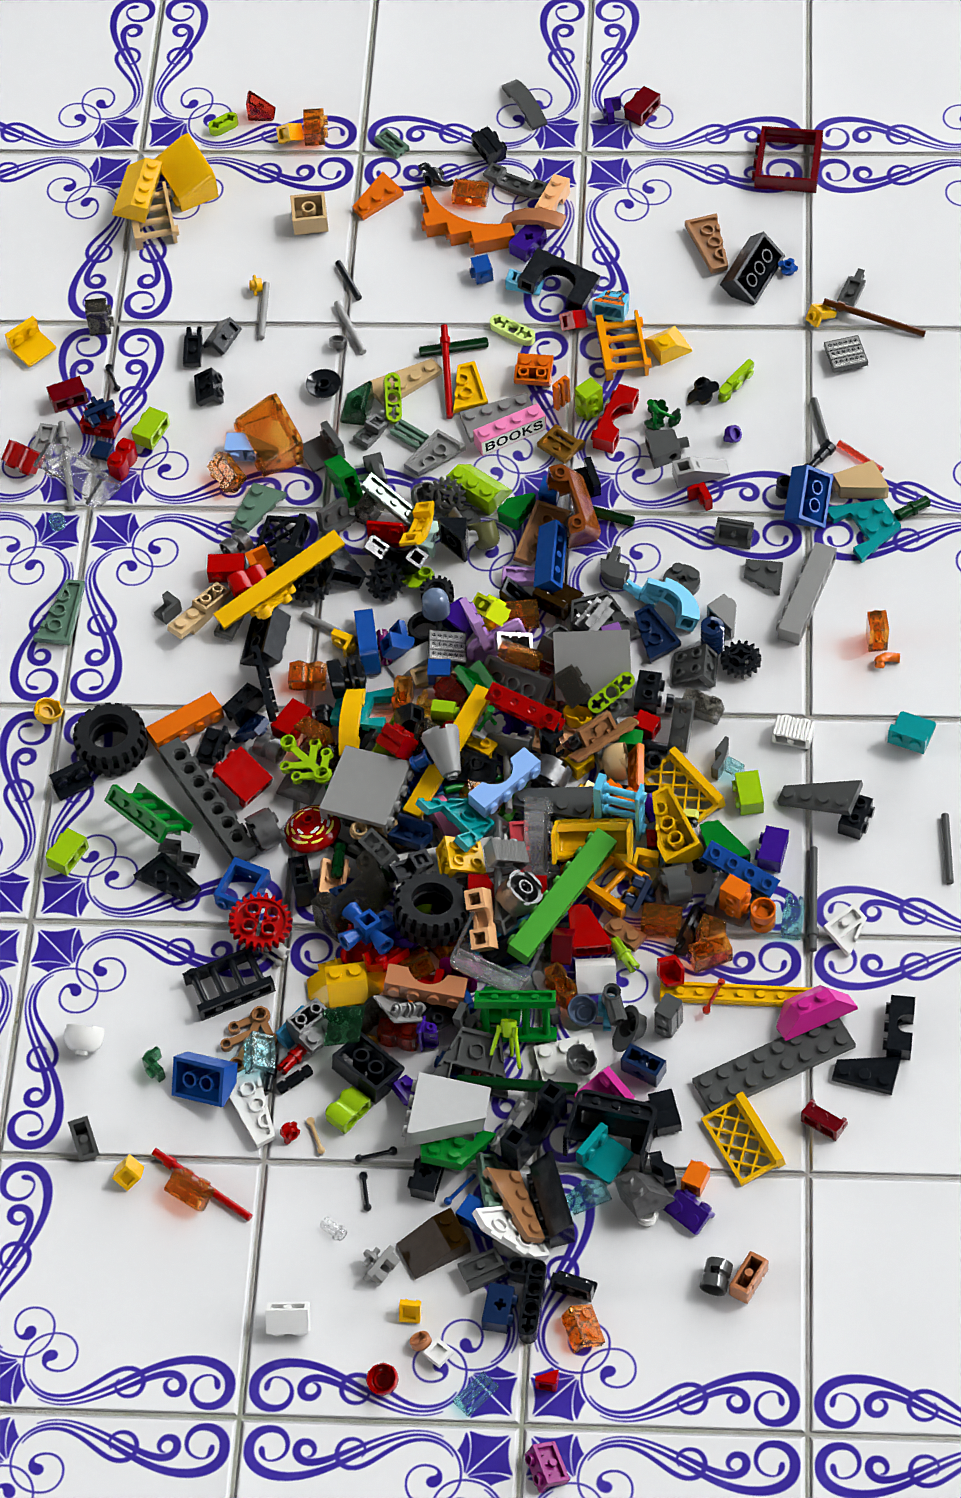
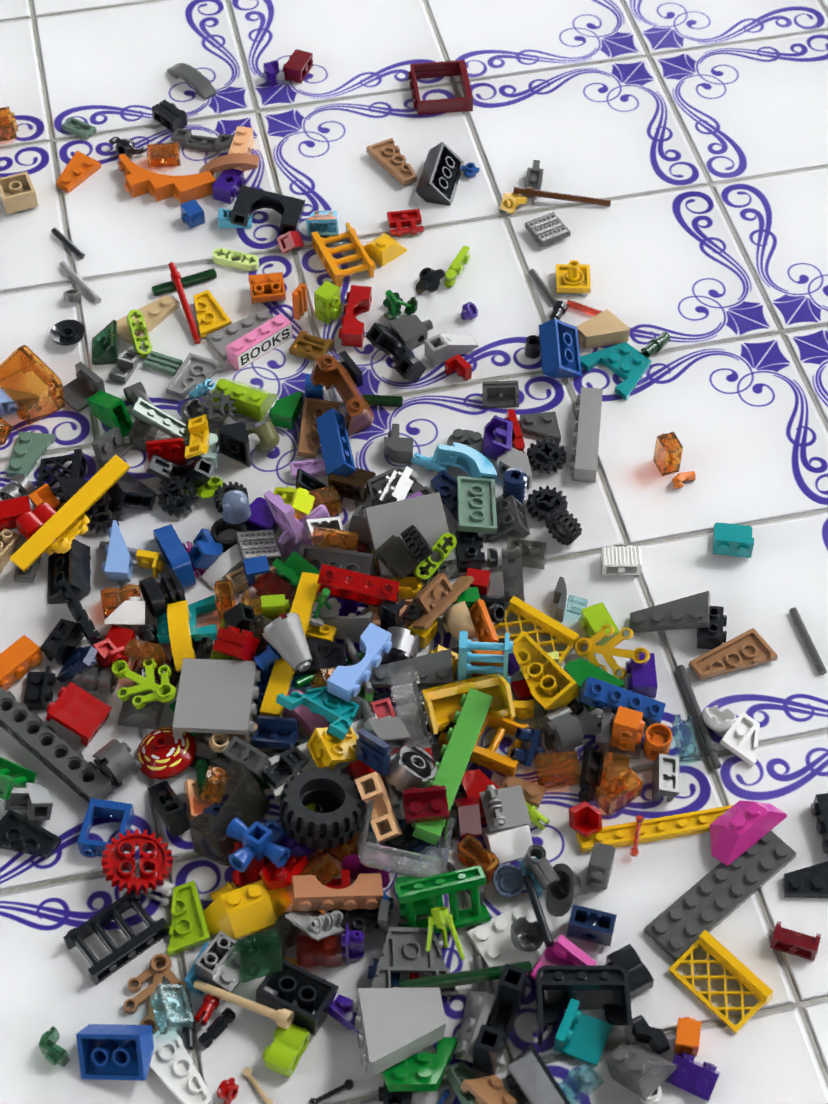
camera: 20 degrees left, 5 degrees down
(280, 724) = (108, 652): none -> red bracket
(293, 983) = (188, 920): none -> lime wing
(310, 690) = (128, 613): none -> white slope
(314, 635) = (118, 561): none -> light blue slope
(343, 868) = (212, 791): none -> clear orange brick
(348, 1081) = (282, 1017): none -> tan piece
(437, 472) = (201, 389): none -> medium azure pin
(488, 869) = (373, 752): none -> dark blue plate
(522, 926) = (425, 804): none -> dark red bracket
(593, 676) = (416, 543): none -> black tyre
(598, 944) = (504, 807): none -> light grey hinge
(598, 1041) = (545, 932): none -> black bar
(635, 451) = (406, 362): none -> black arch
(667, 647) = (476, 505): none -> sand green plate
(700, 314) = (403, 218): none -> red plate
(713, 580) = (497, 437): none -> dark purple window
(733, 580) = (517, 437): none -> red hinge
(747, 608) = (546, 456): none -> black gear
(747, 686) = (563, 527): none -> black tyre
(747, 818) = (609, 651): none -> yellow plant
(759, 948) = (665, 777): none -> hinge
(828, 905) = (719, 720): none -> white hair
(852, 416) = (572, 278): none -> yellow plate
(871, 847) = (736, 654): none -> medium nougat wing

